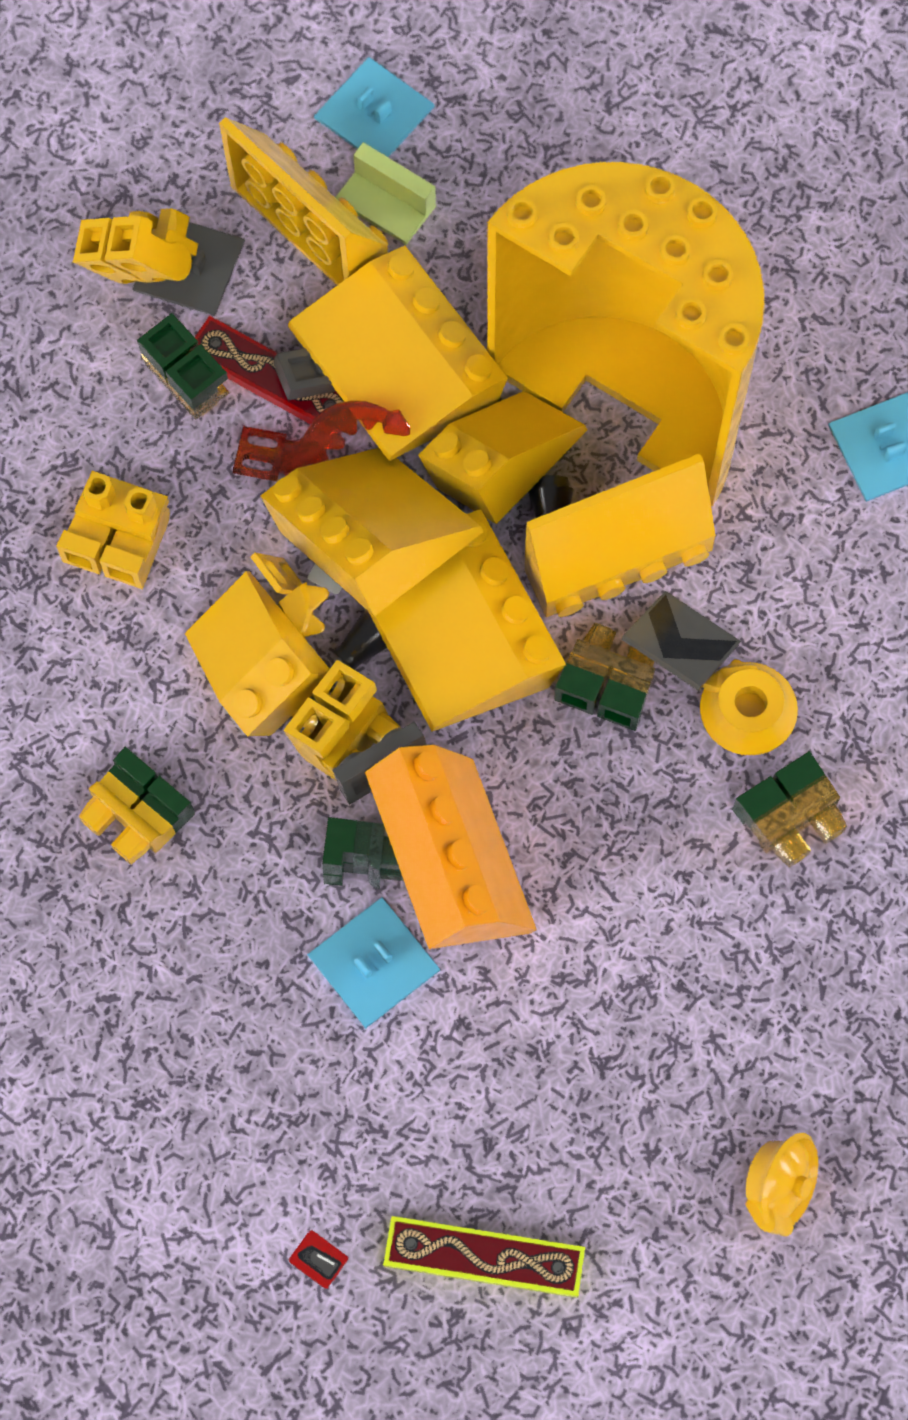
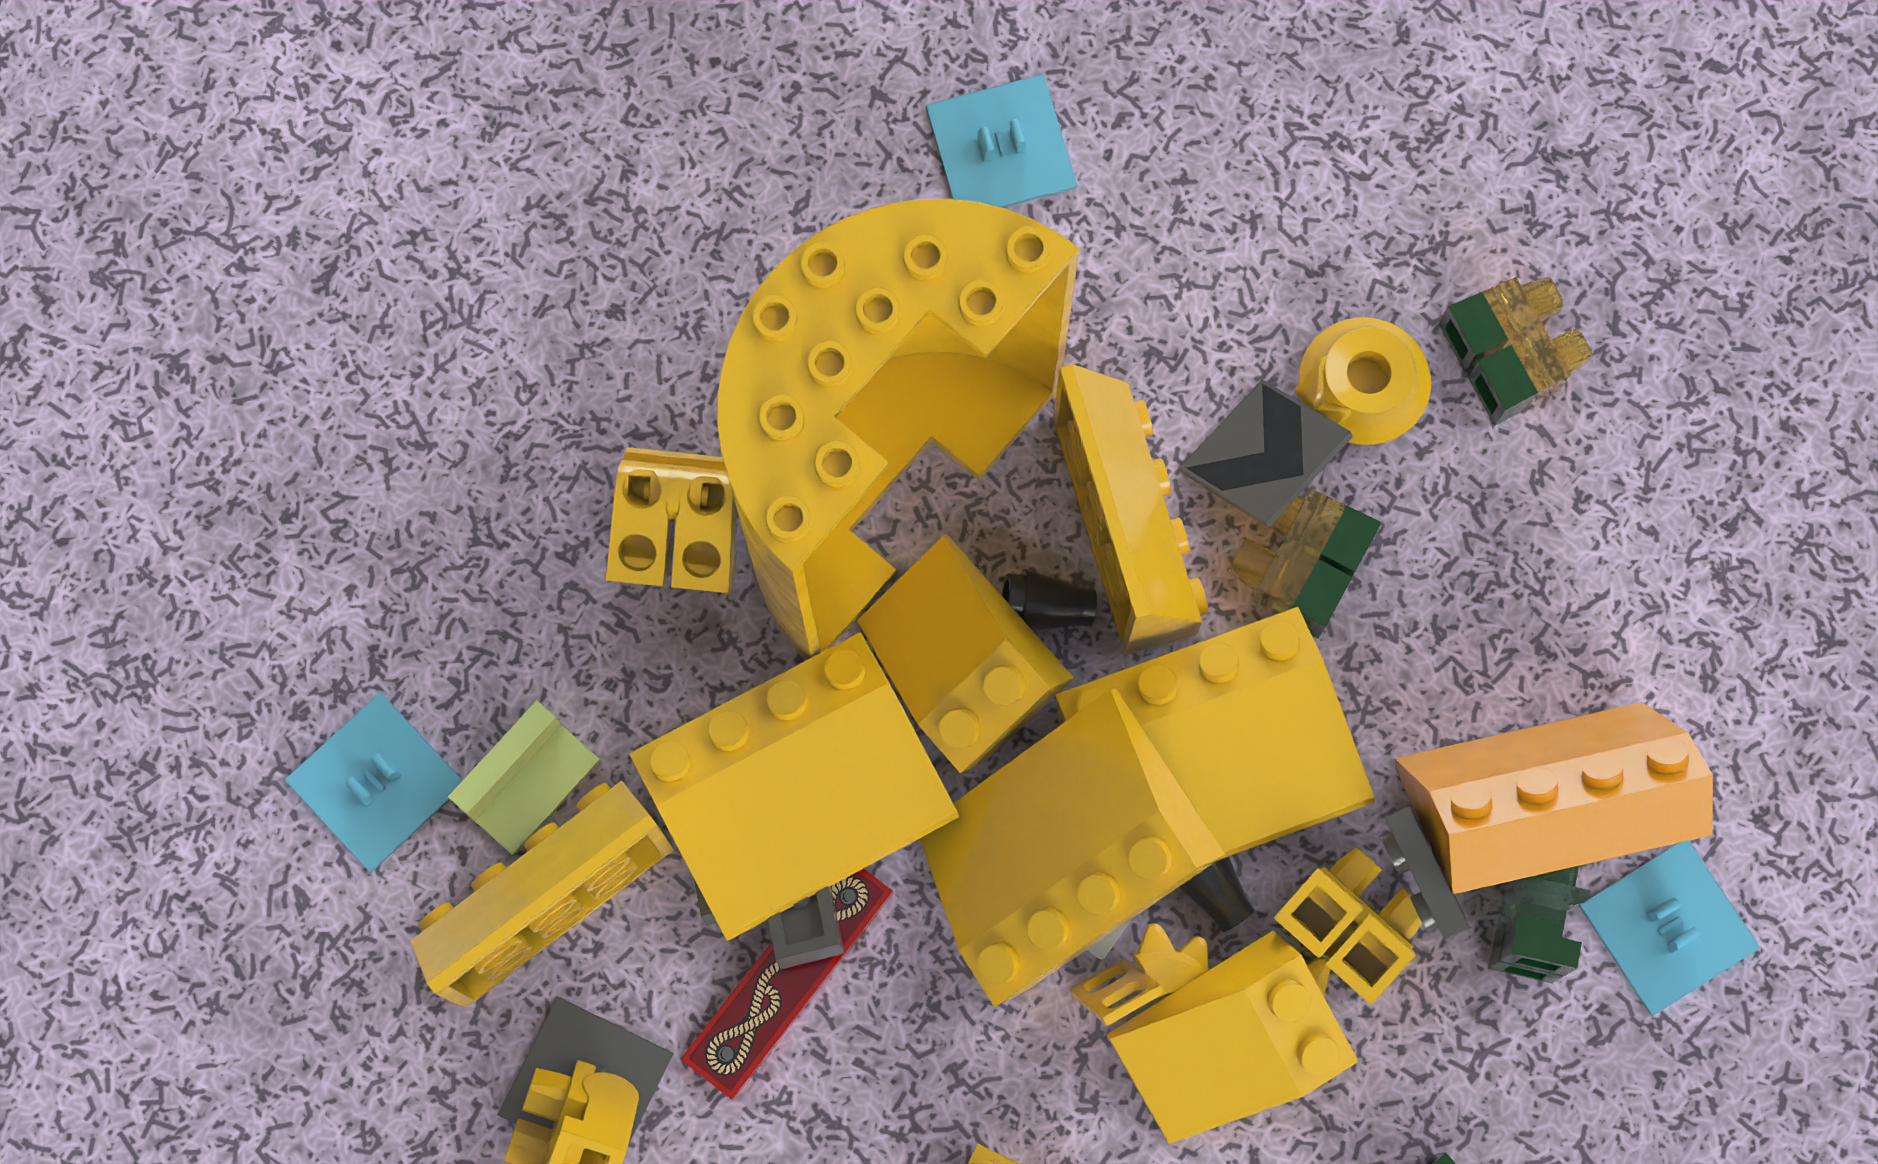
camera: 85 degrees left, 5 degrees up
(183, 366) = (780, 1100): dark green hips -> none
(318, 438) = (923, 927): clear red piece -> none

